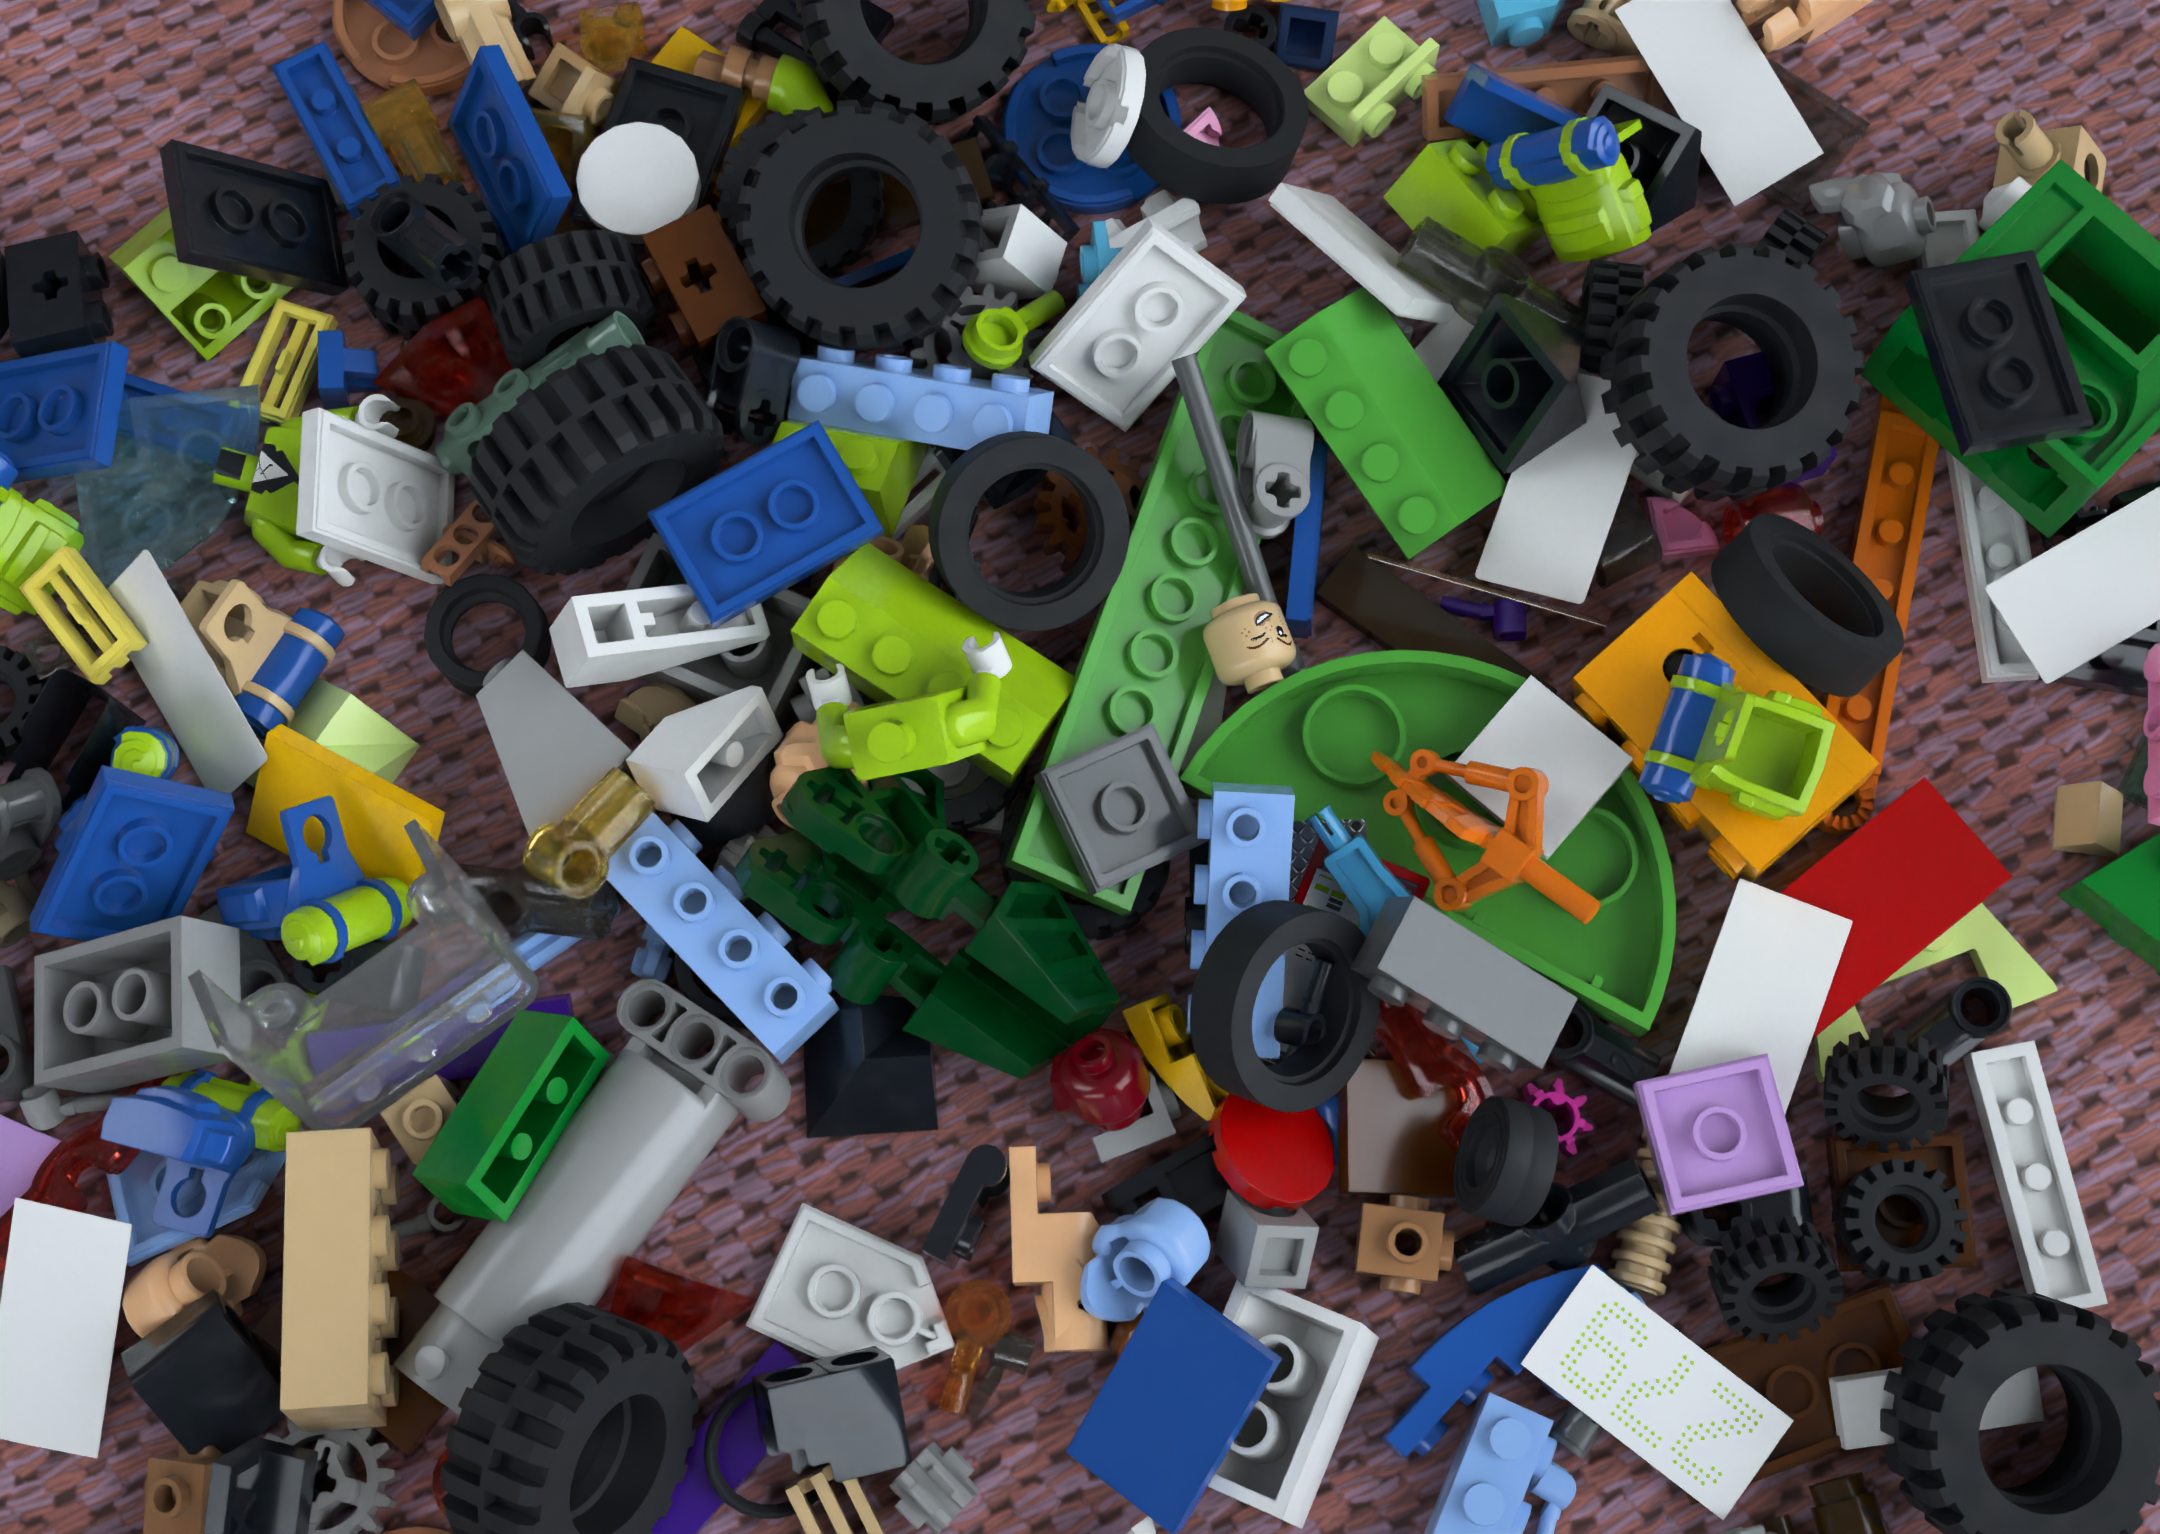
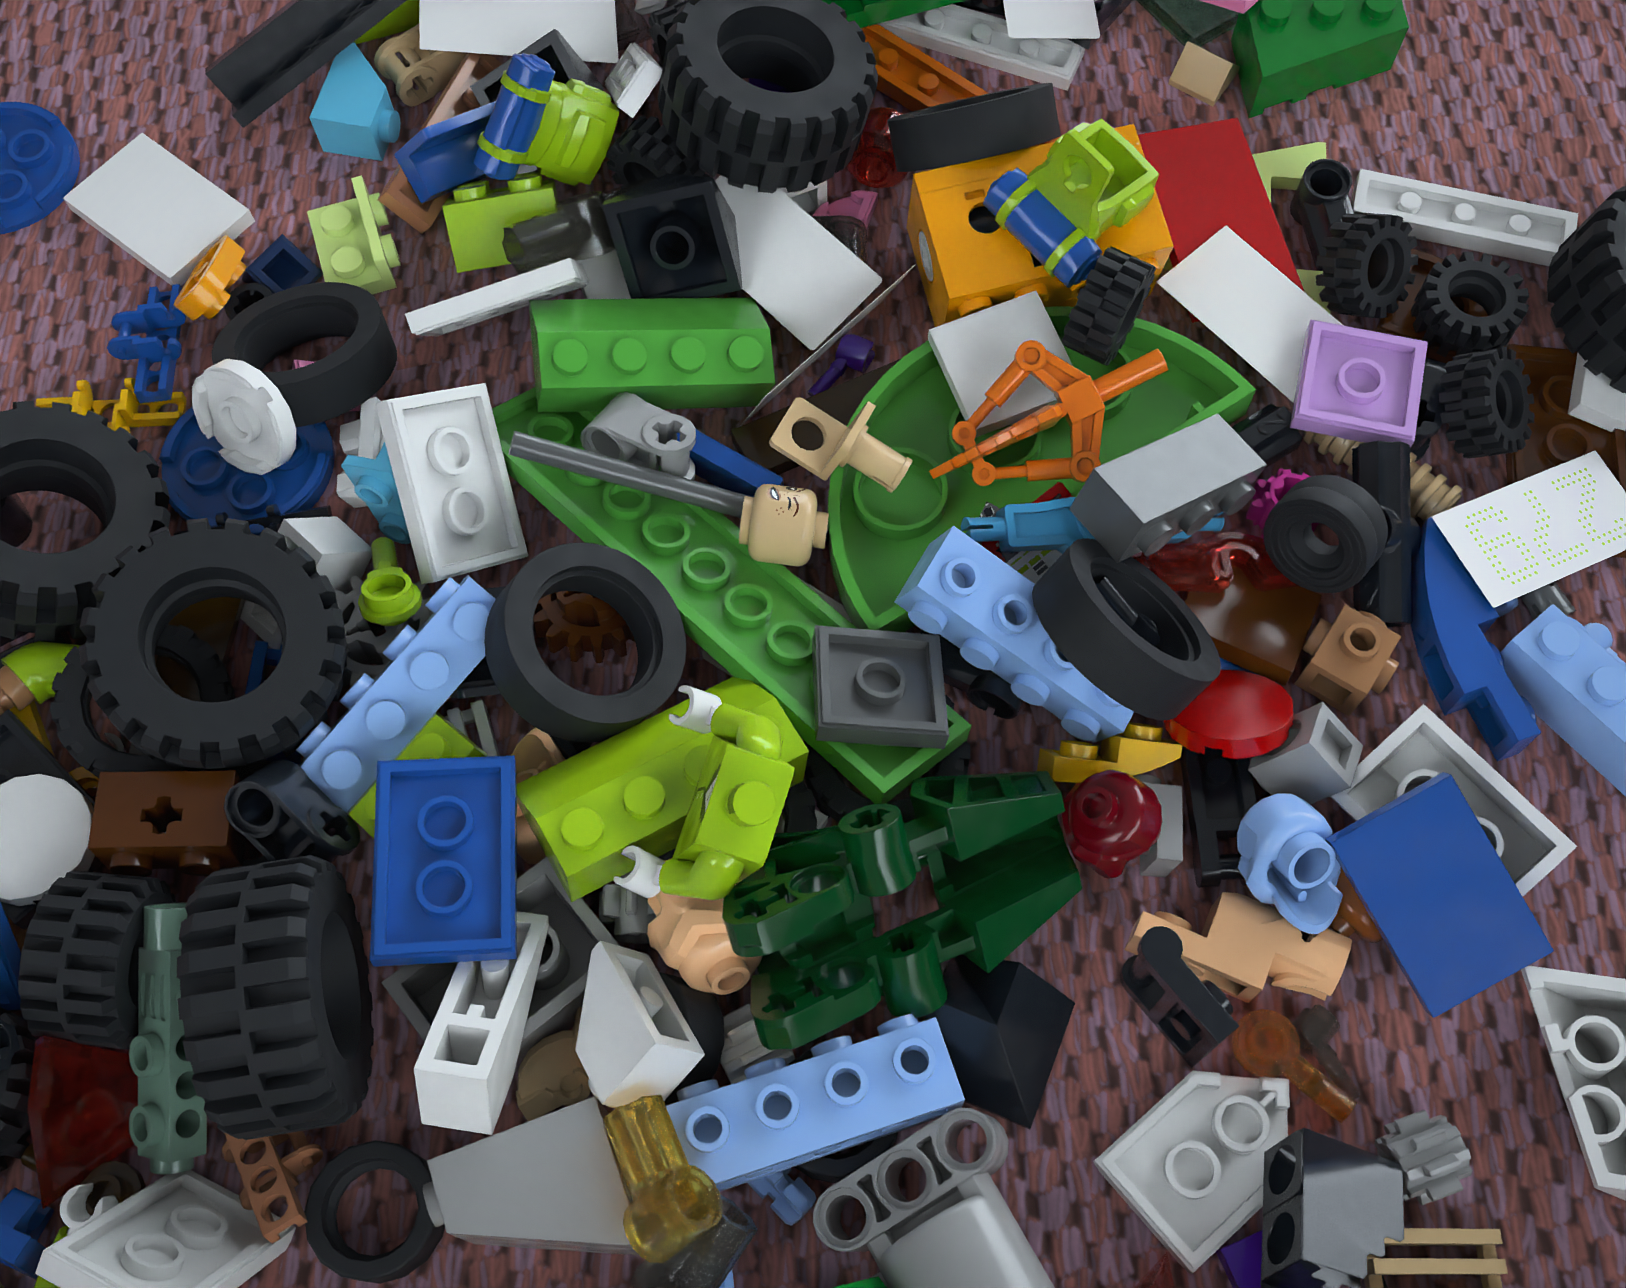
camera: 65 degrees left, 10 degrees down
(1352, 656) = (840, 446): none -> tan bracket
(1639, 835) = (1108, 305): none -> black tyre
(1693, 232) = (633, 79): none -> white tile

